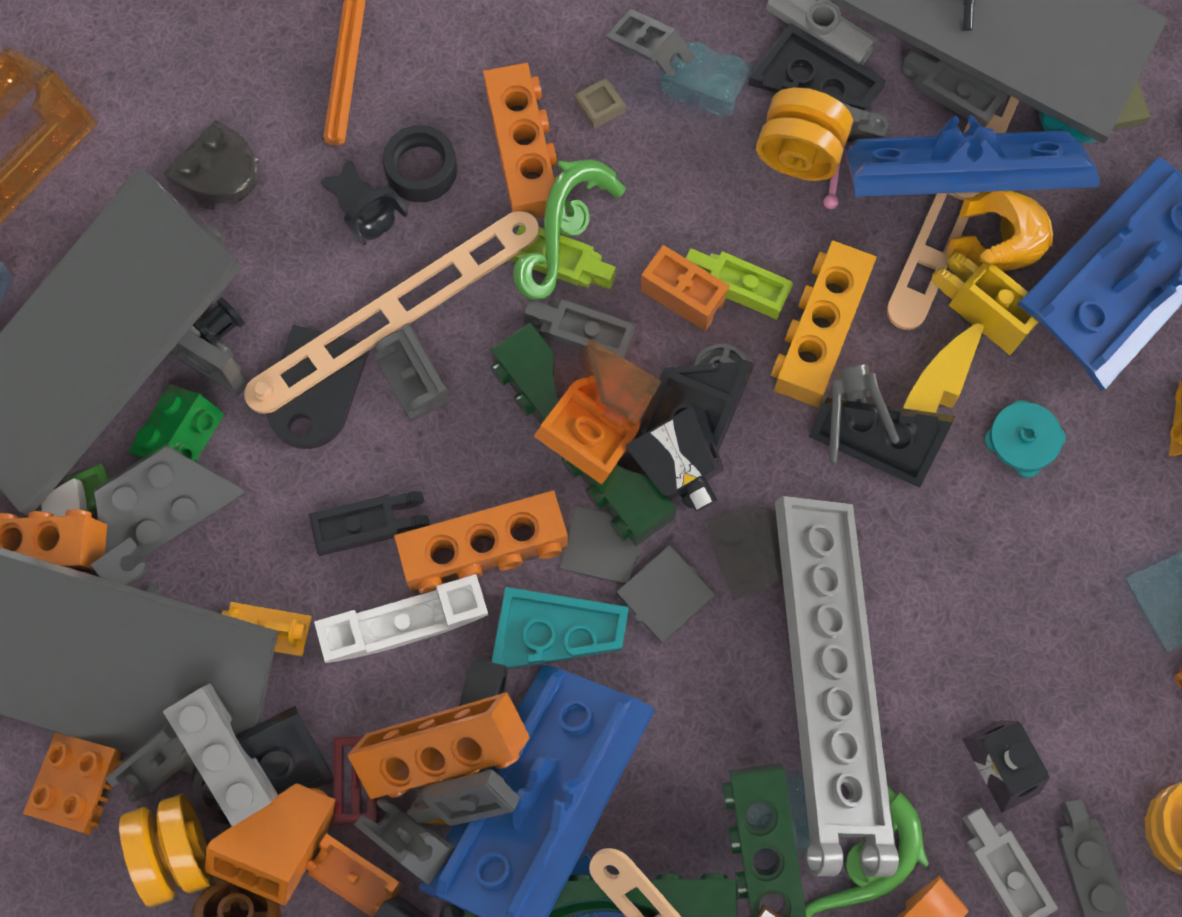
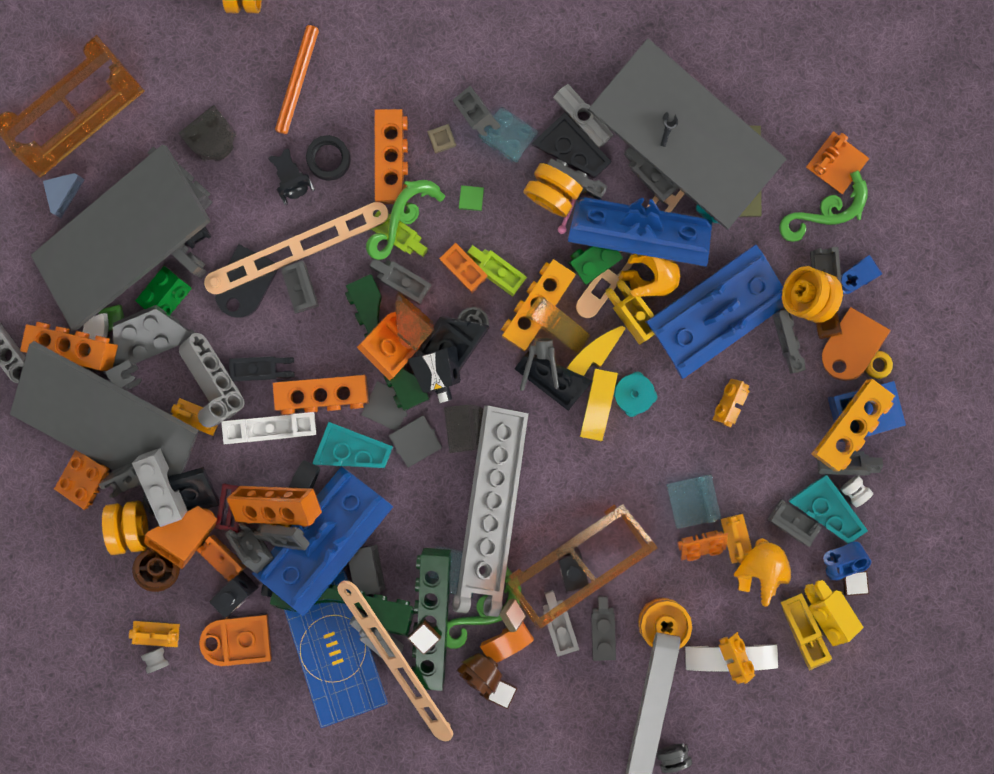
camera: 10 degrees right, 15 degrees up
(300, 568) = (213, 380): none -> light grey beam
(626, 829) = (367, 570): none -> dark grey hinge
(669, 182) = (471, 198): none -> bright green tile
(867, 340) = (558, 324): none -> clear yellow slope
(901, 232) = (593, 262): none -> green bracket
(920, 866) = (512, 615): none -> tile
(971, 464) = (598, 404): none -> yellow slope
(1047, 646) = (612, 514): none -> clear orange windscreen

